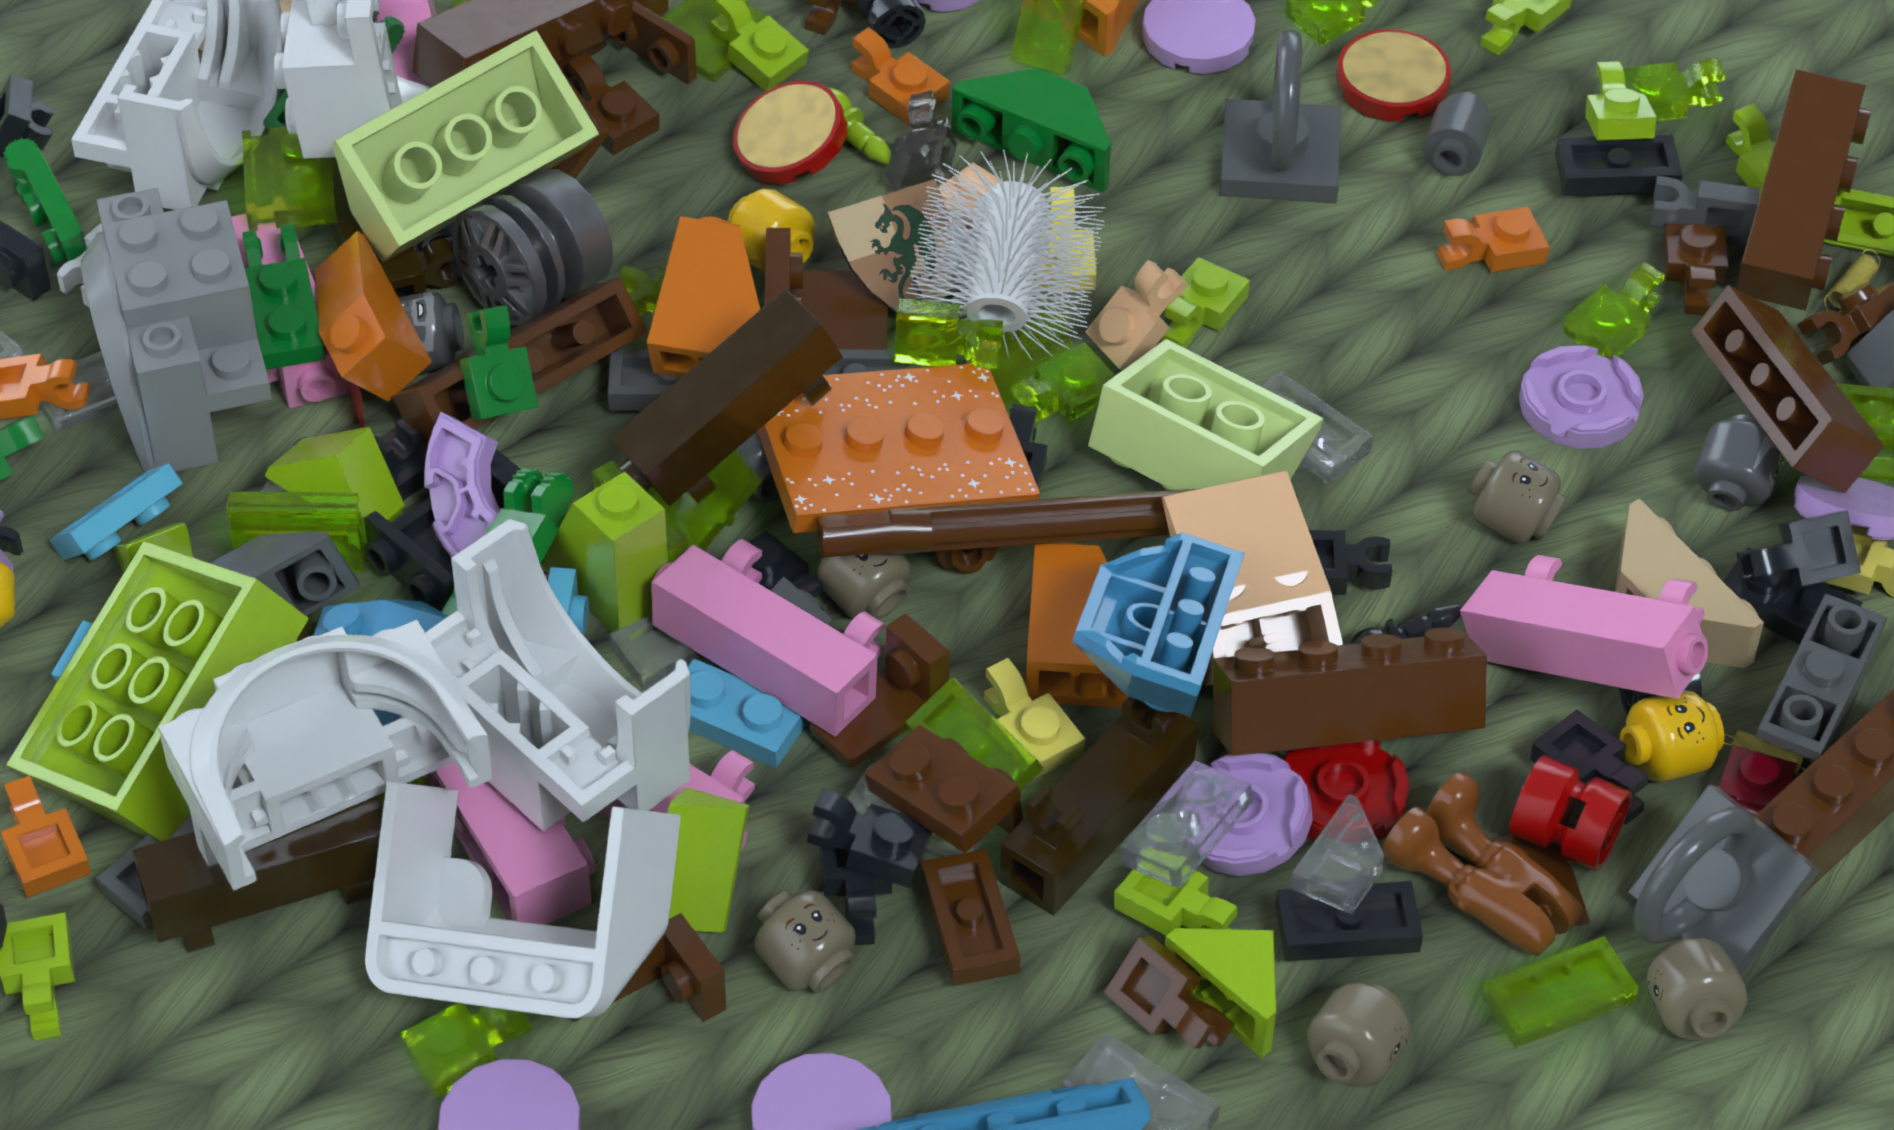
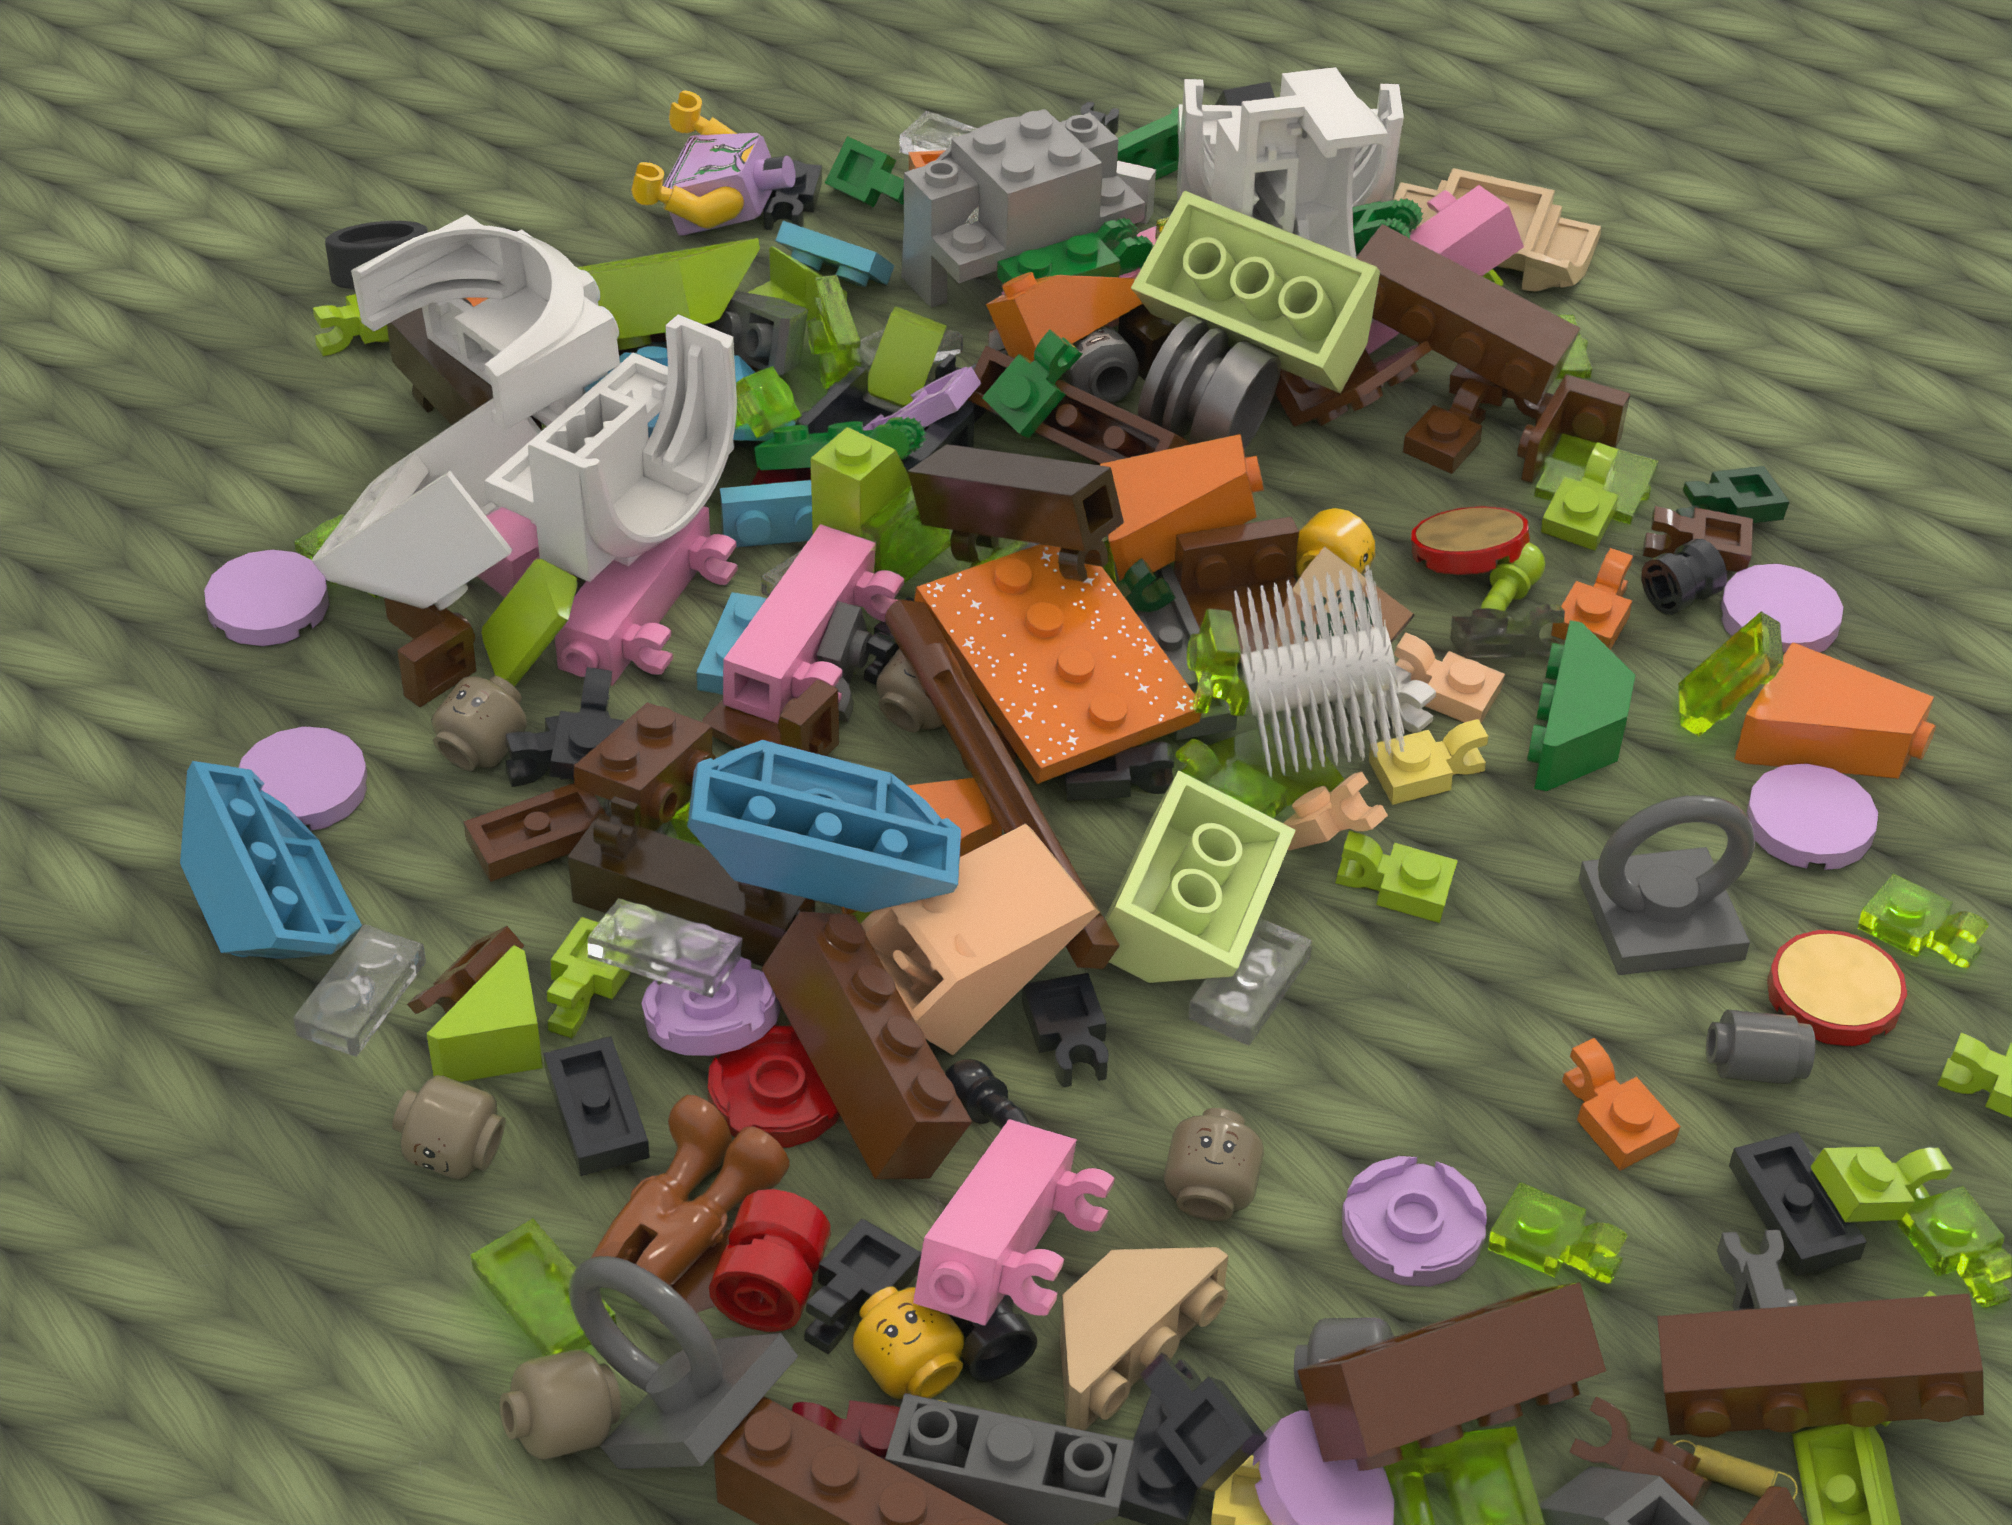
camera: 75 degrees right, 5 degrees down
(420, 591) = (764, 402): none -> clear neon green plate
(1341, 860) = (653, 1073): clear tile -> none
(1698, 259) = (1669, 1291): reddish brown plate -> none

